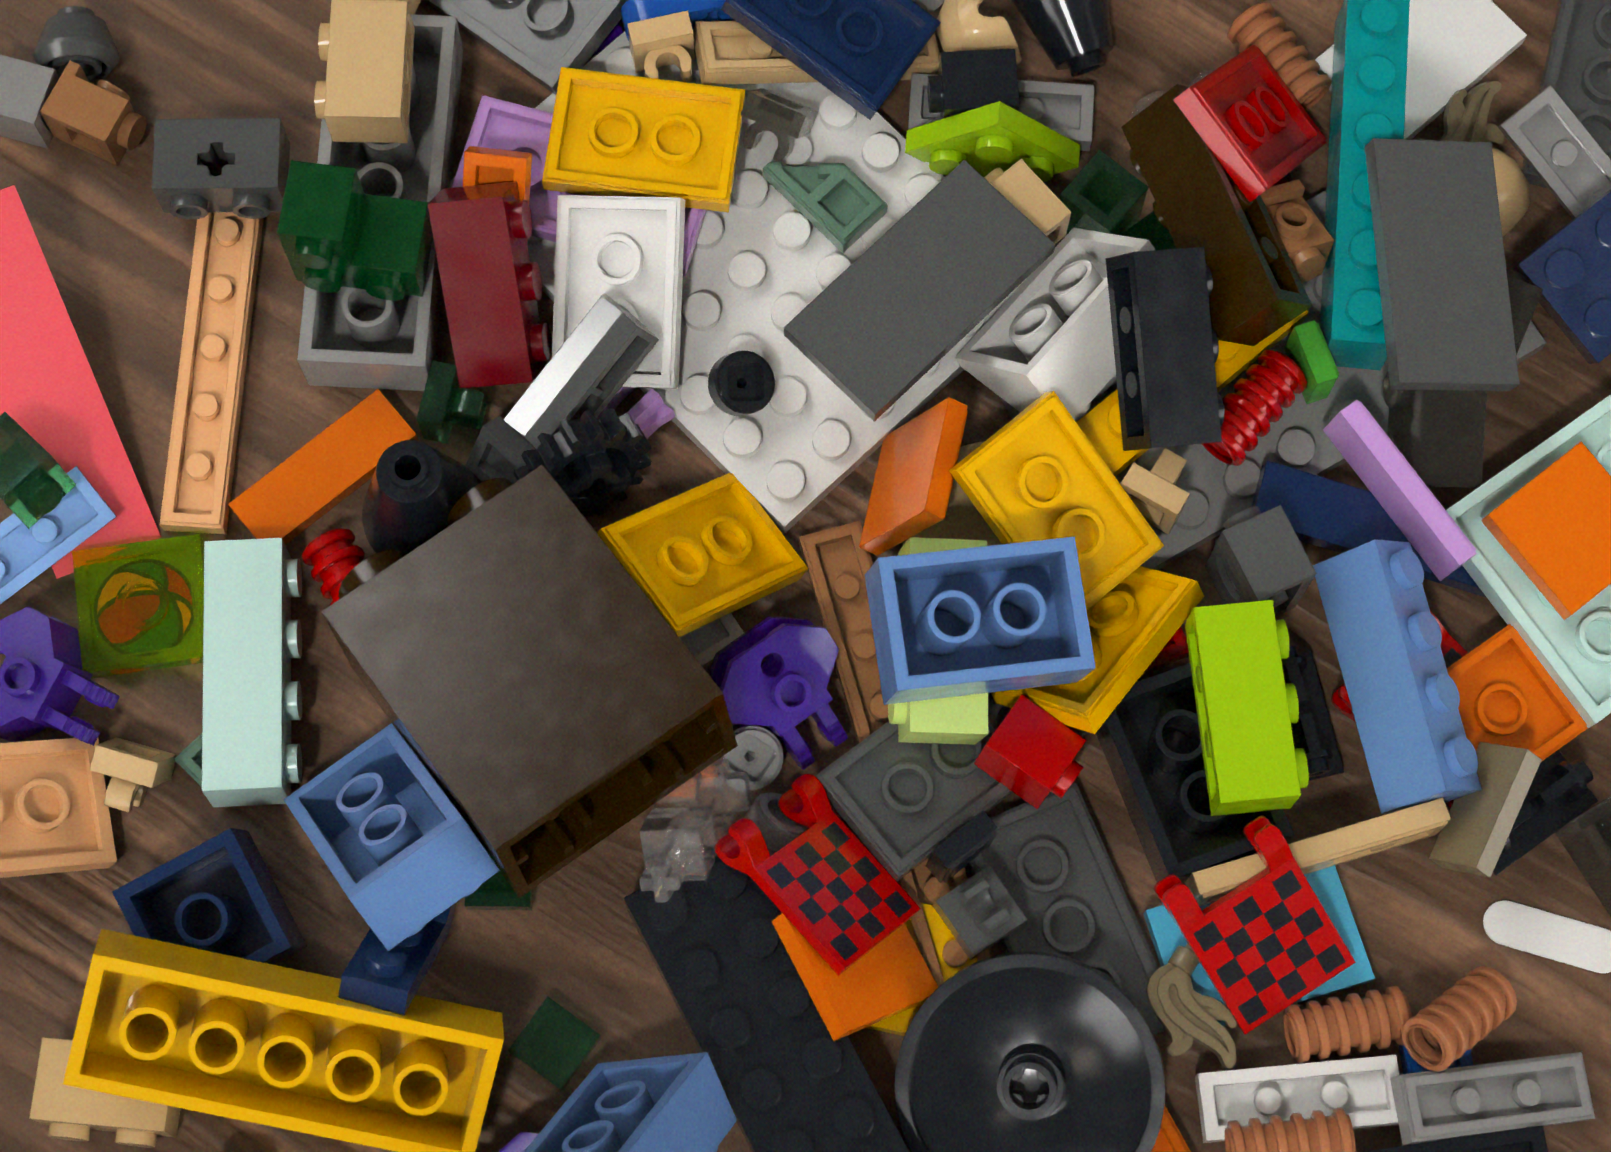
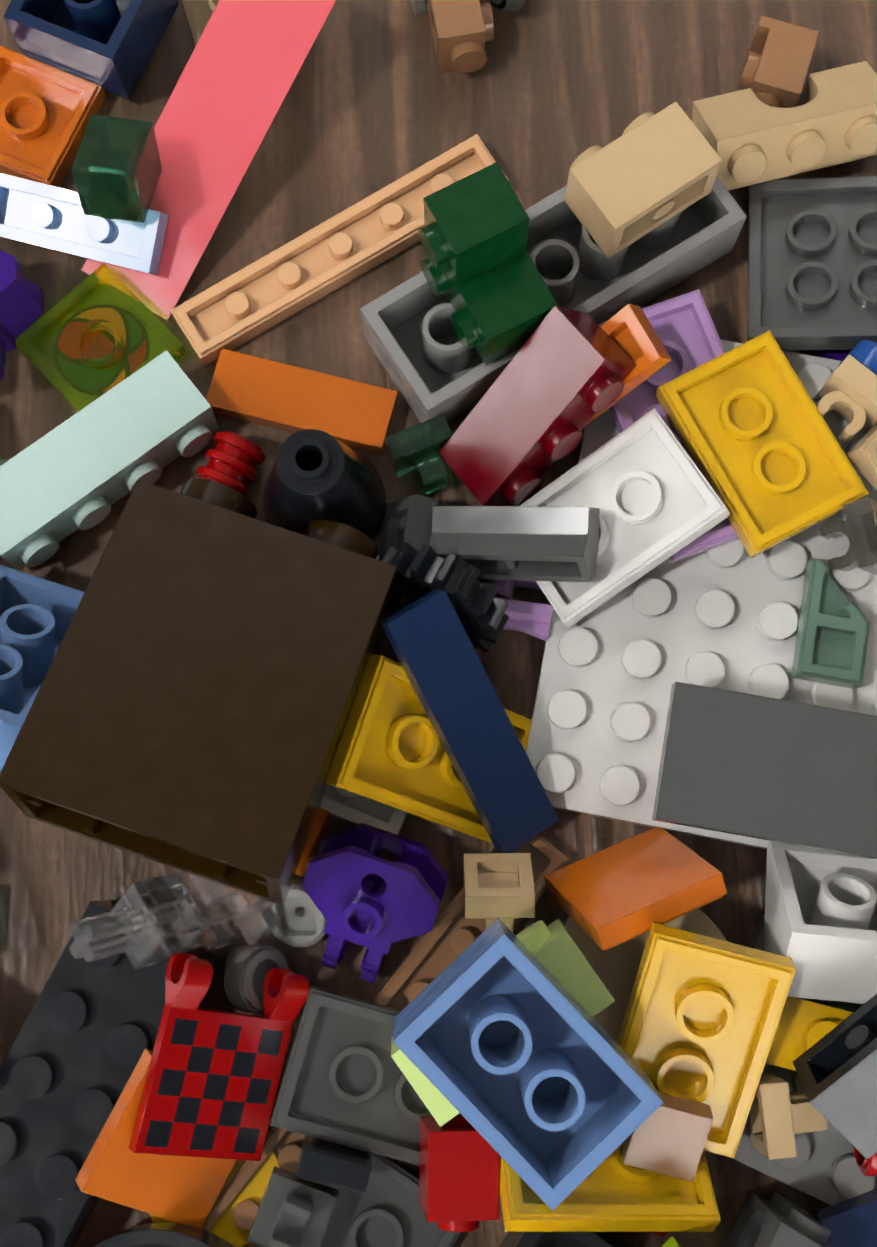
camera: 60 degrees right, 5 degrees up
(190, 162) = (480, 123): dark grey brick -> none
(699, 505) = (469, 720): none -> dark blue tile
(741, 383) = (609, 676): black tile -> none
(839, 577) = (499, 887): none -> tan tile
(1113, 575) = (670, 1138): none -> medium nougat tile

